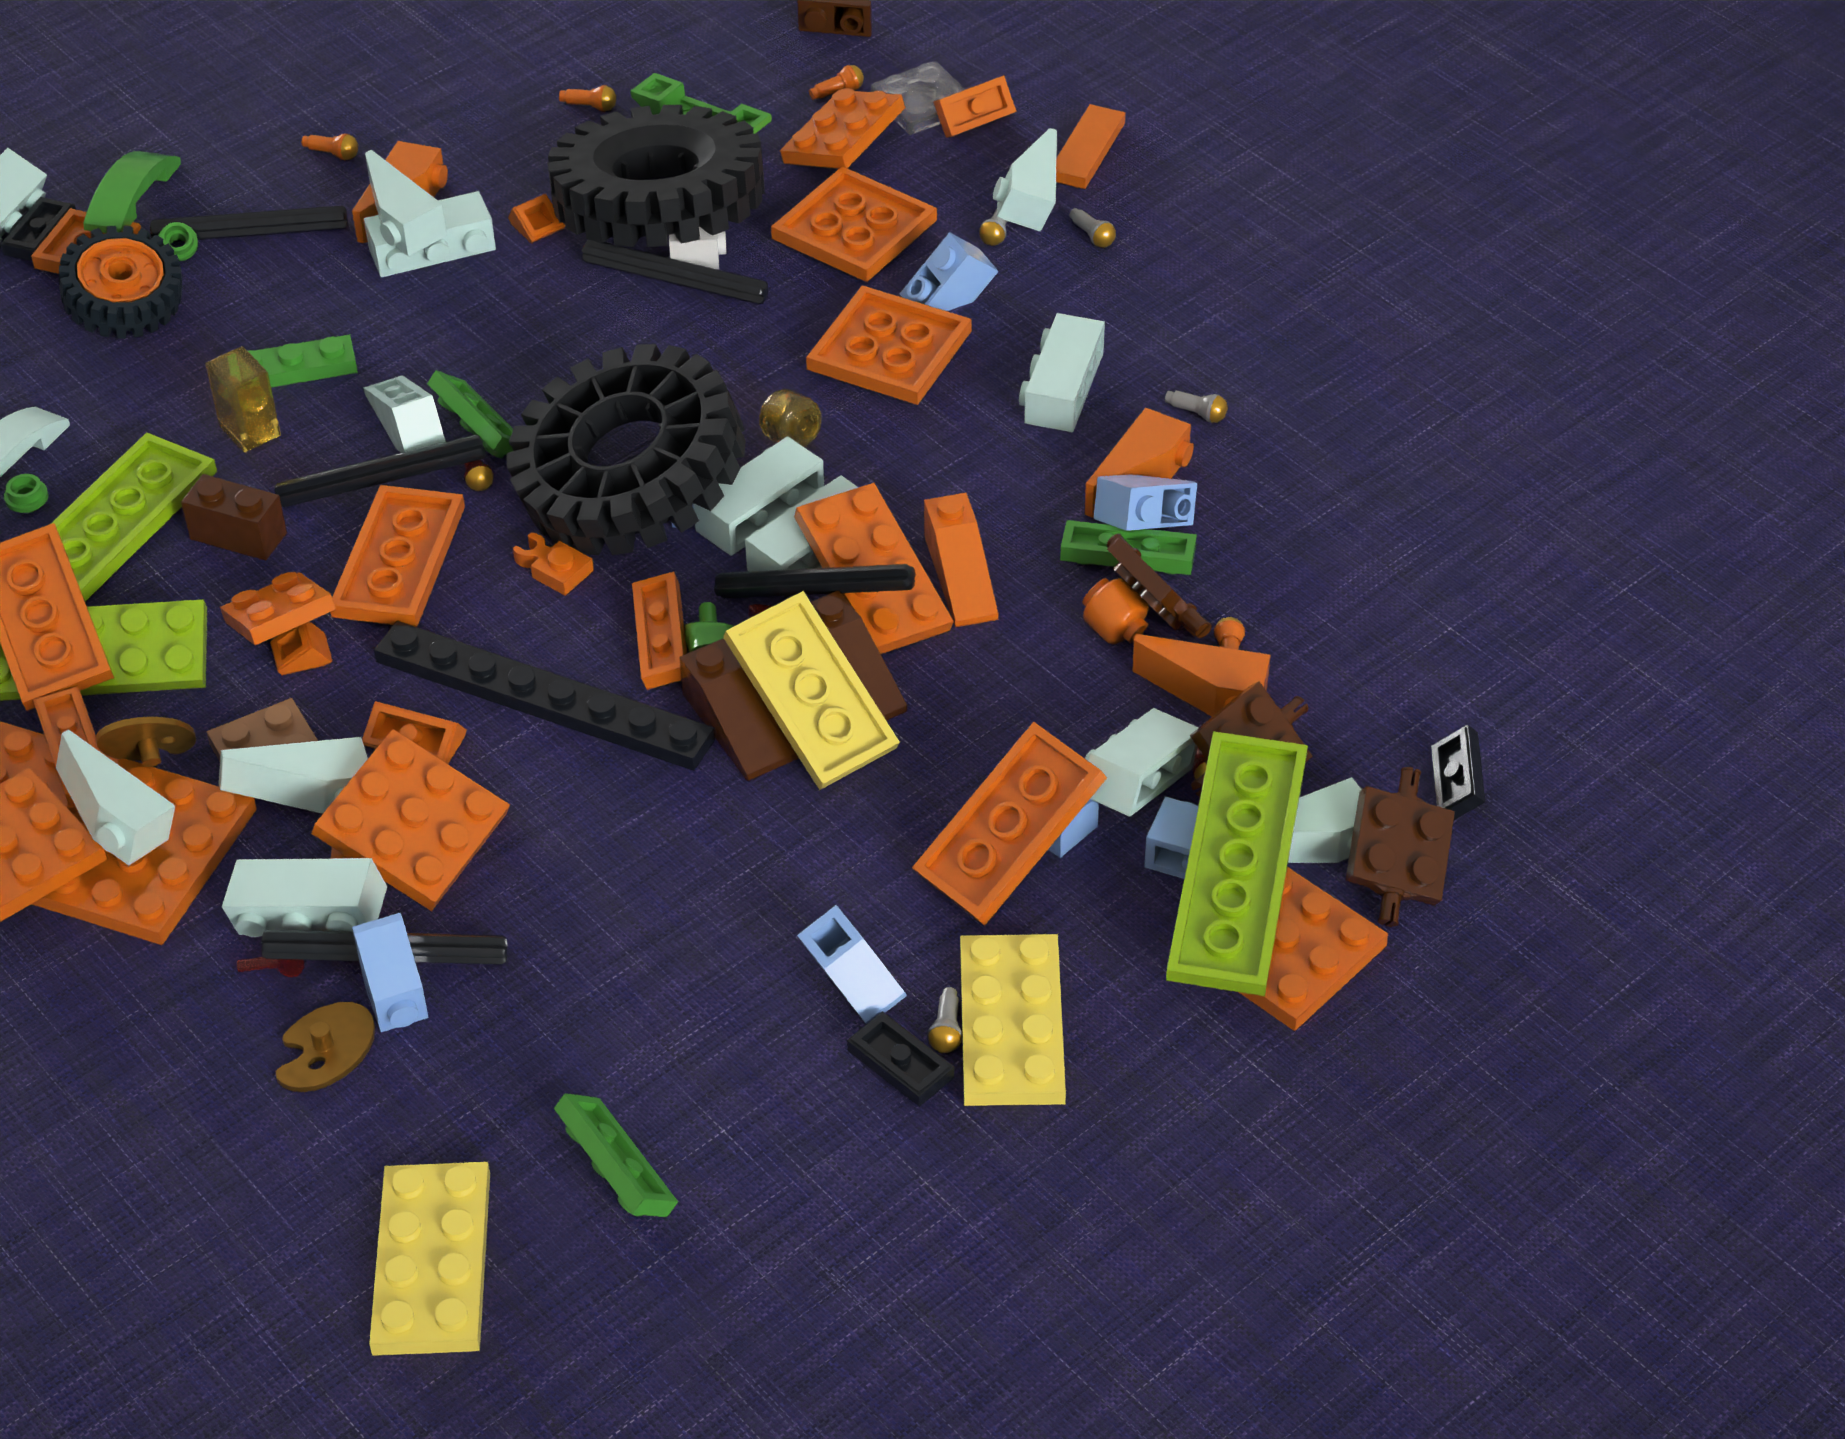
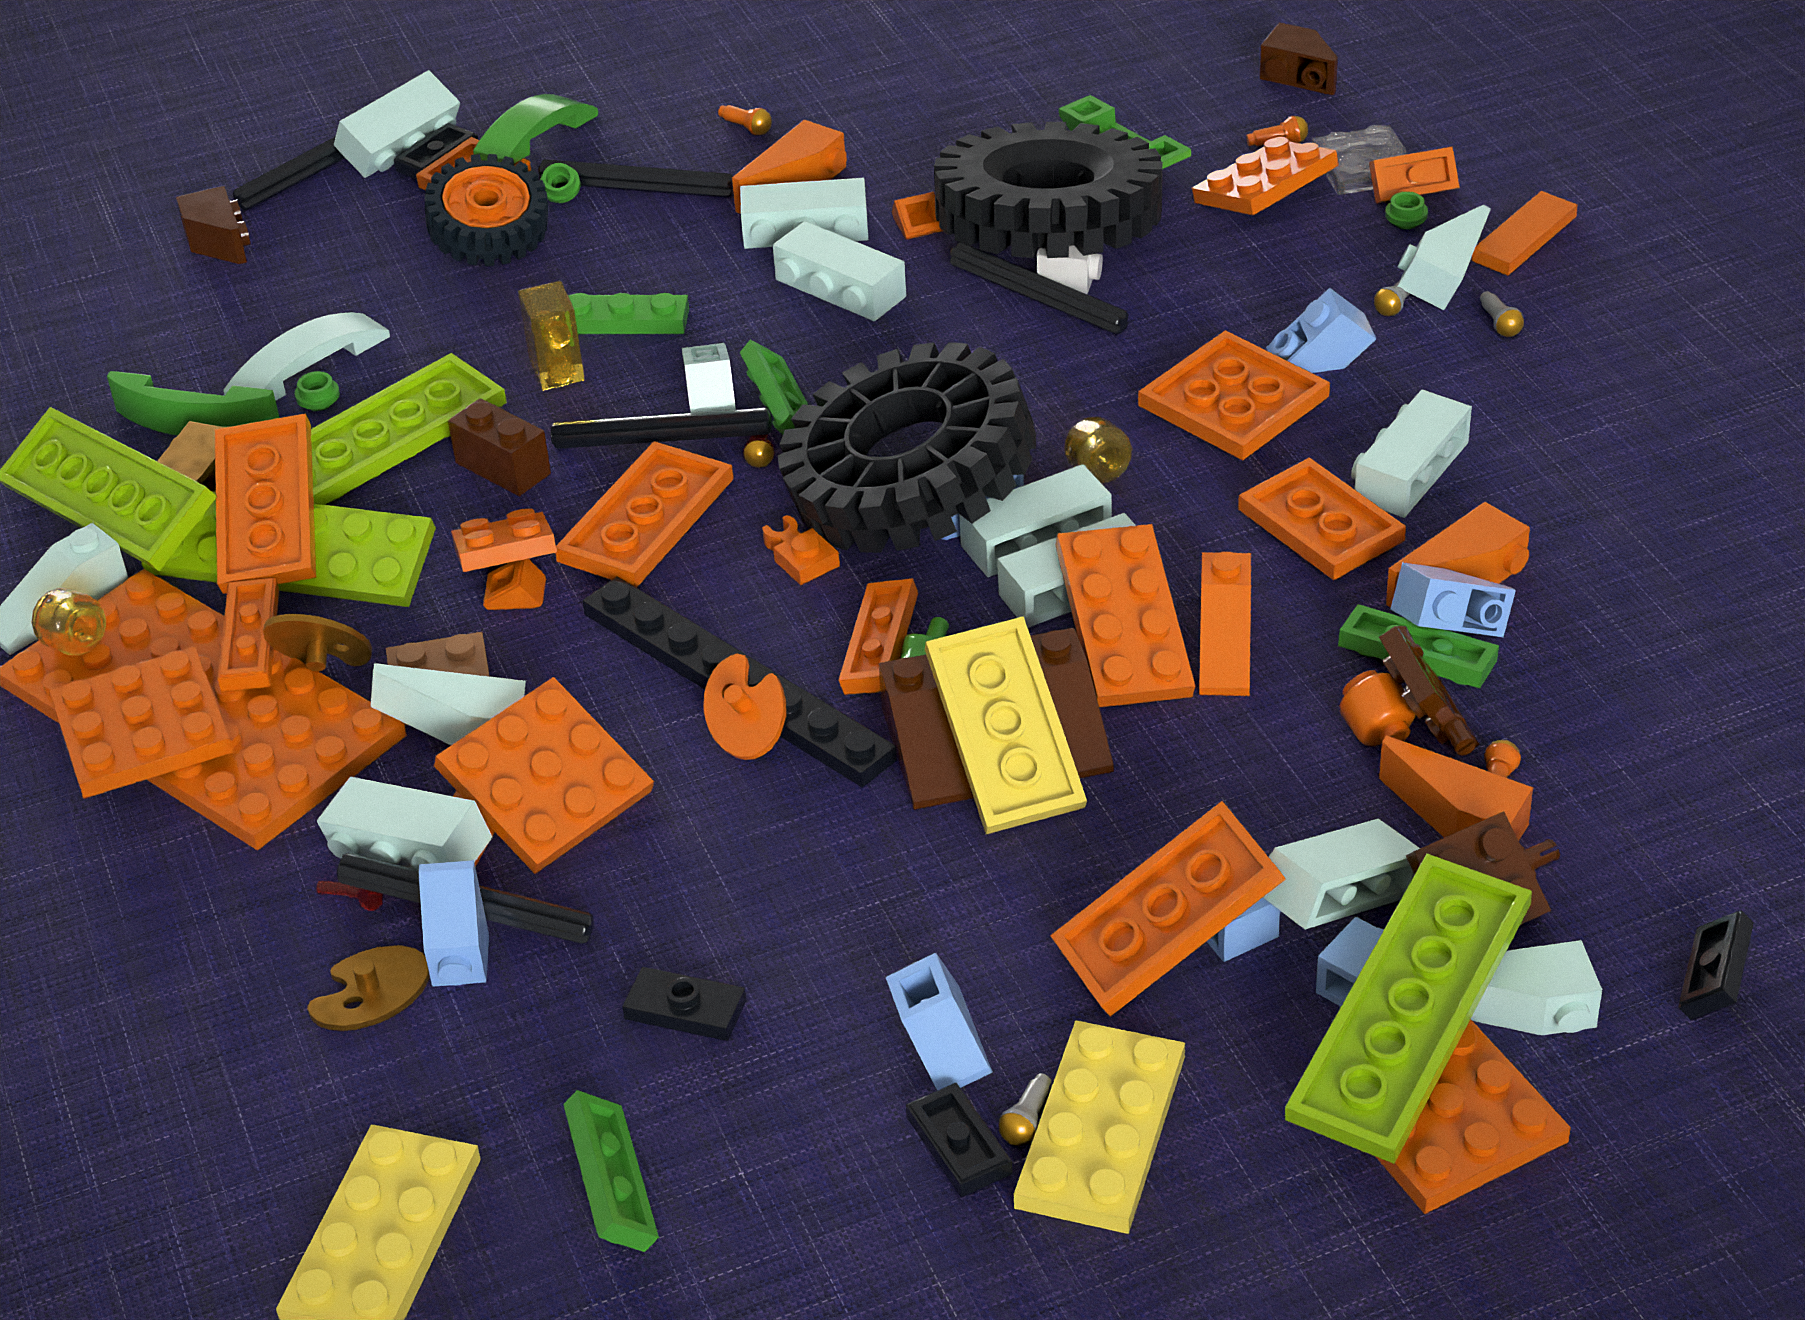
camera: 20 degrees right, 5 degrees down
(113, 803) = (256, 702): light aqua slope -> none
(406, 212) = (779, 184): light aqua slope -> none
(429, 732) = (599, 694): orange slope -> none
(486, 286) = (839, 270): none -> light aqua brick
(576, 727) = (743, 717): none -> orange piece
(601, 98) = (1025, 112): orange piece -> none
(617, 996) = (684, 1003): none -> black plate
(815, 581) = (1056, 614): black axle -> none
(854, 223) = (1242, 270): orange plate -> none
(978, 141) = (1406, 210): none -> bright green plate
(1006, 446) = (1321, 518): none -> orange plate
(1209, 407) = (1565, 517): light grey piece -> none
(1400, 846) = (1614, 1030): reddish brown plate -> none

